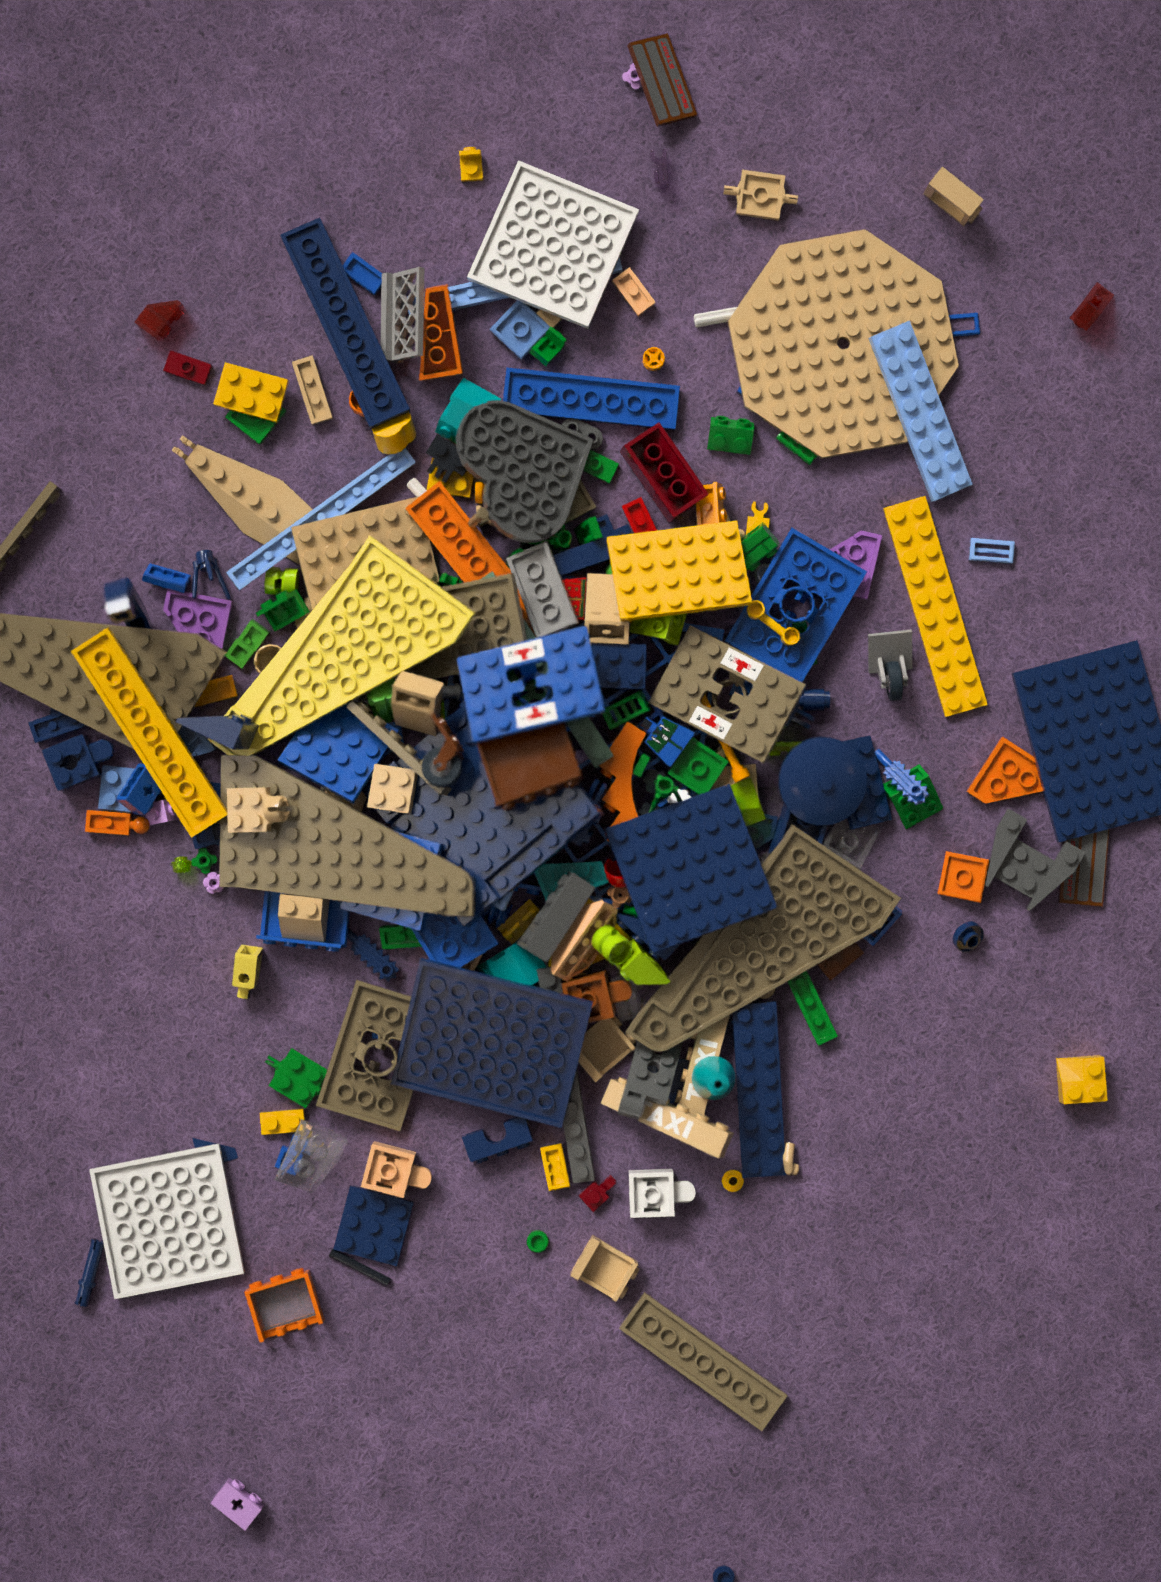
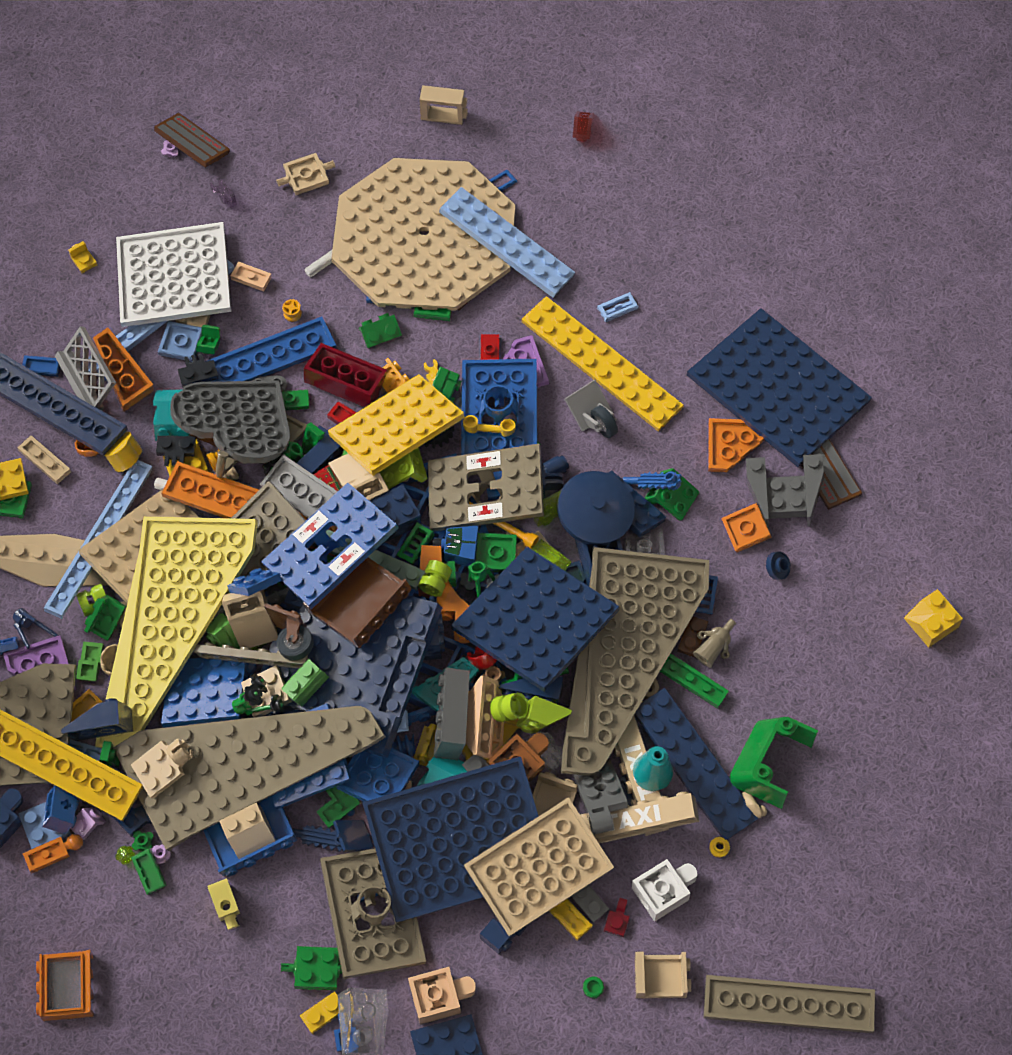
camera: 30 degrees left, 25 degrees down
(63, 961) = (64, 985): none -> window
(194, 895) = (149, 871): none -> green plate
(213, 760) = (108, 755): none -> green plate
(371, 799) = (252, 697): none -> black plant
(399, 973) = (353, 835): none -> dark blue piece
(430, 809) = (305, 682): none -> bright green brick
(437, 679) = (254, 582): none -> blue plate
(516, 379) = (197, 371): none -> black hinge
(548, 1114) = (538, 866): none -> tan plate
(617, 770) = (435, 578): none -> lime wheel
(823, 1113) = (754, 776): none -> green windscreen
(829, 525) = (489, 346): none -> red plate
(855, 982) = (718, 640): none -> dark tan piece

